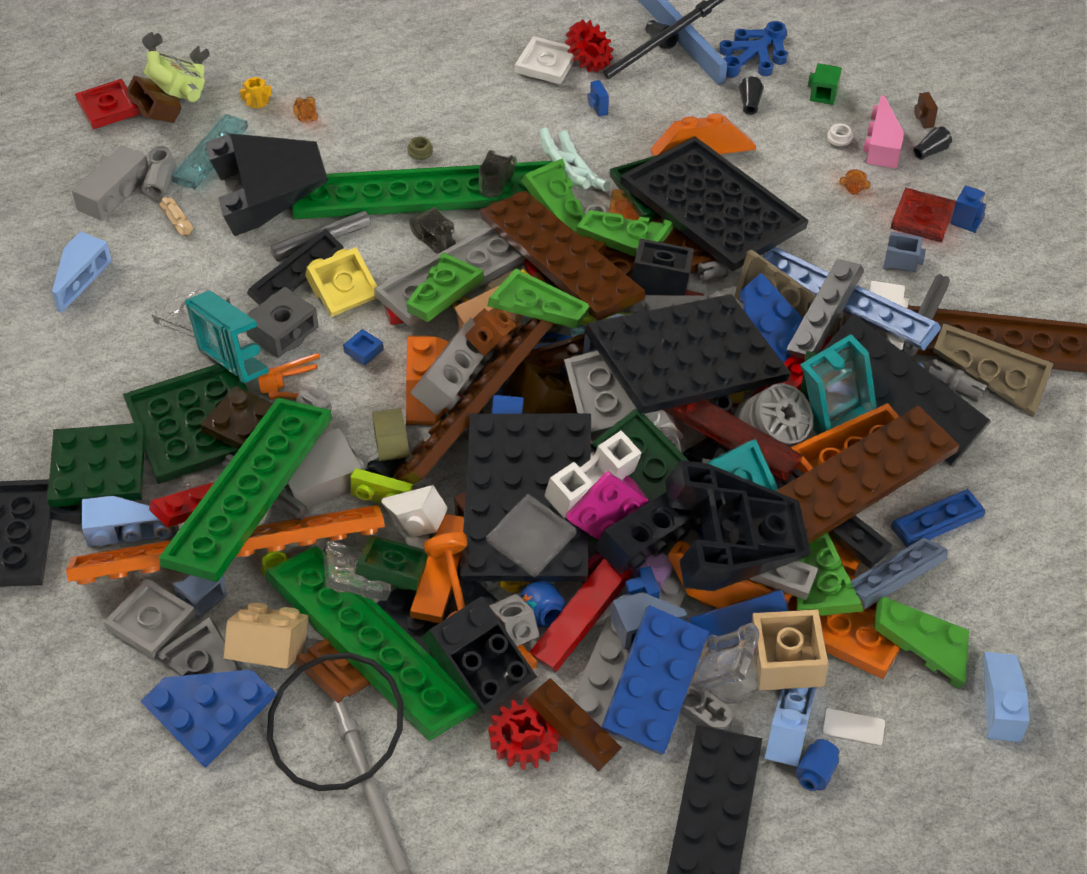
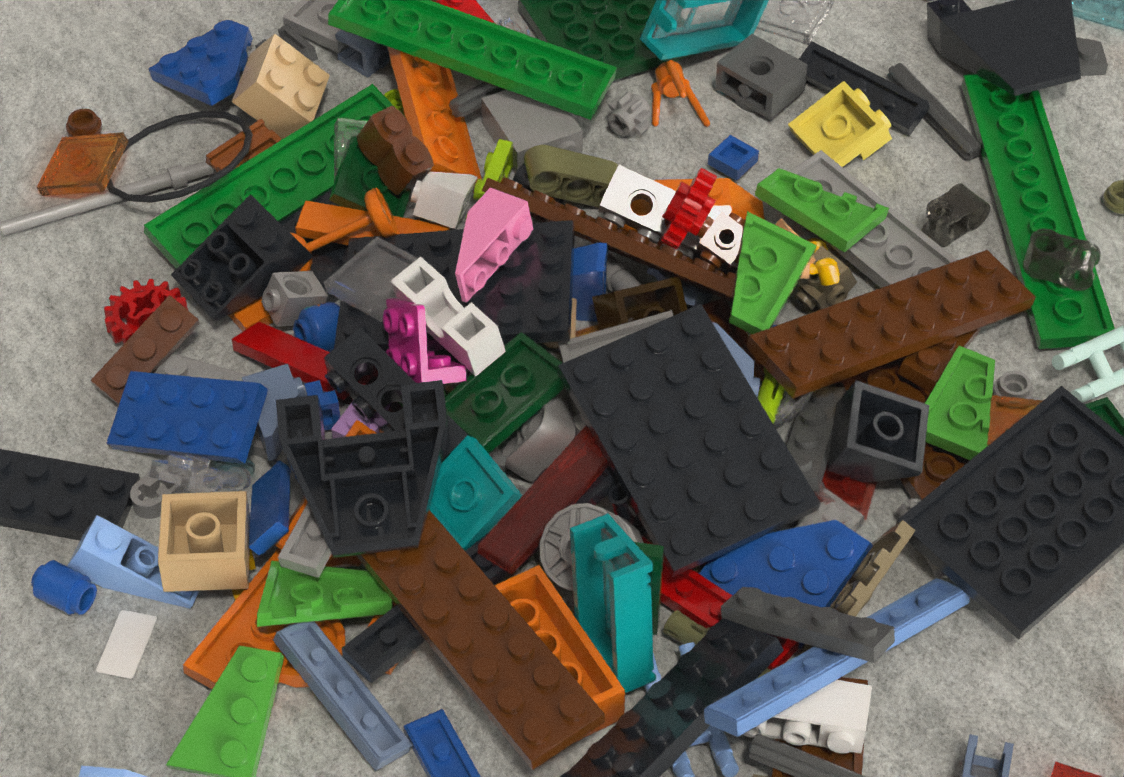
camera: 90 degrees right, 0 degrees up
(235, 417) = (605, 45): dark brown plate -> none
(272, 814) = (83, 122): none -> reddish brown plate
(331, 804) = (82, 164): none -> clear orange plate
(378, 532) = (393, 148): none -> reddish brown brick
(478, 333) = (689, 208): none -> red gear
(500, 456) = (490, 235): none -> bright pink slope
(554, 191) = (1034, 330): bright green wing -> none

